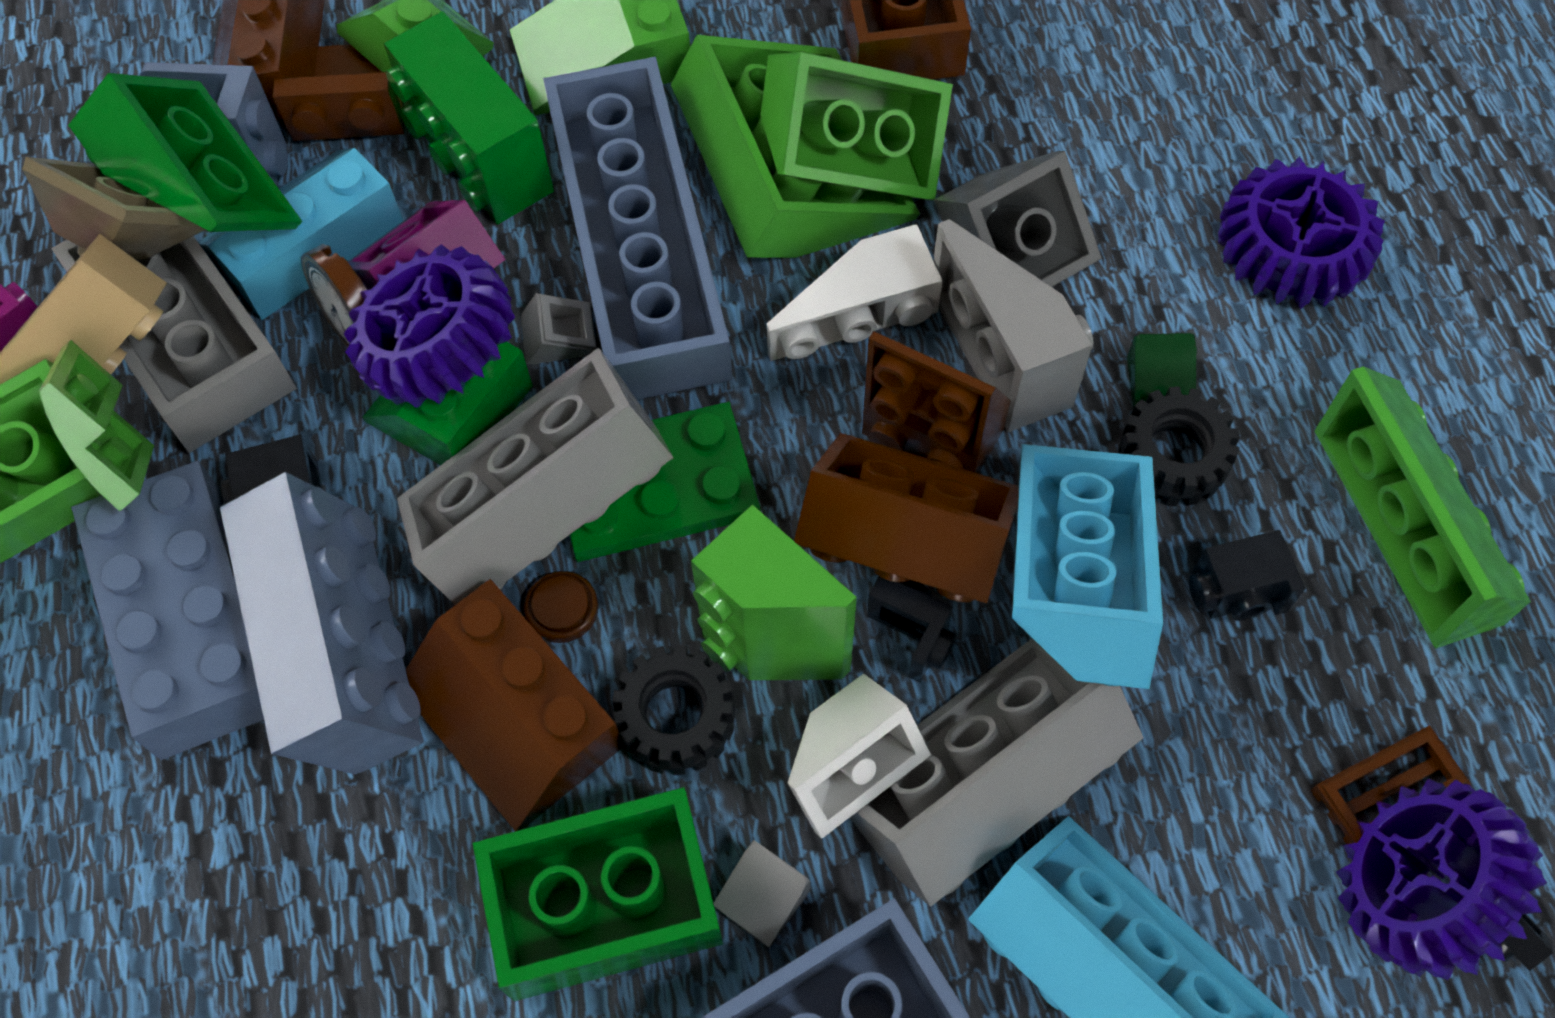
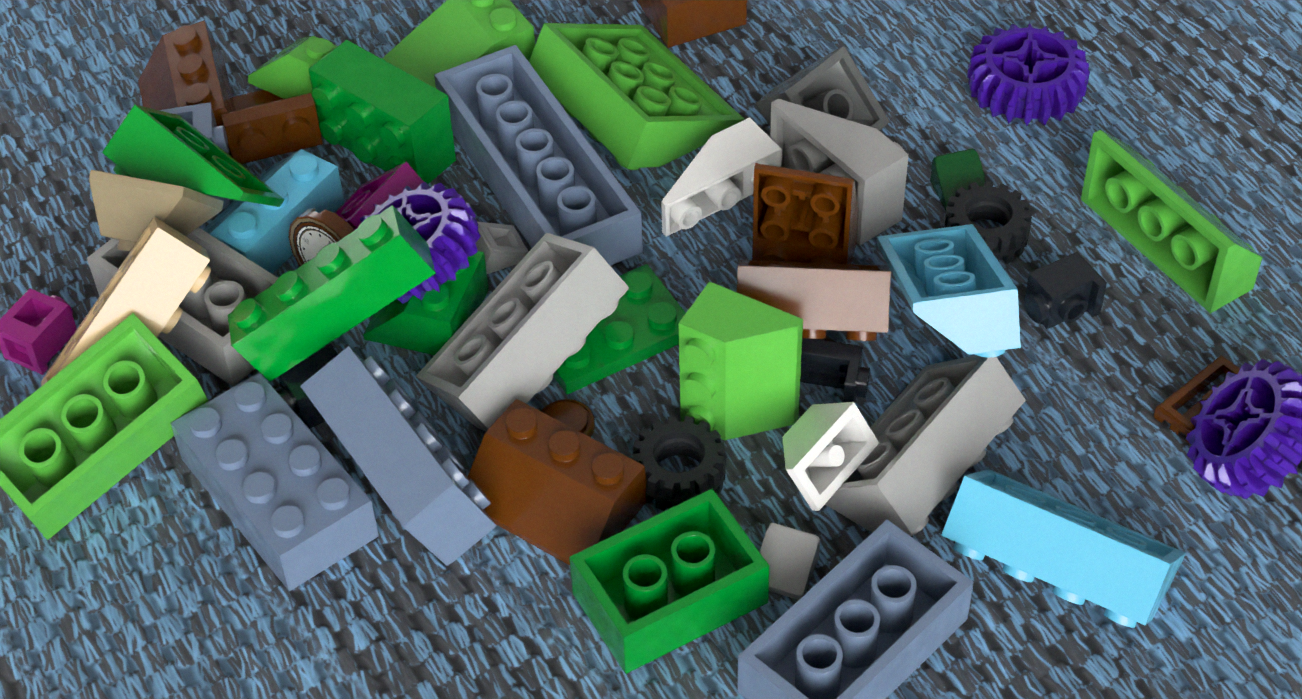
camera: 15 degrees left, 15 degrees down
(103, 446) = (185, 340): bright green slope -> none
(291, 387) = (330, 293): none -> brick
(855, 124) = (681, 58): bright green slope -> none

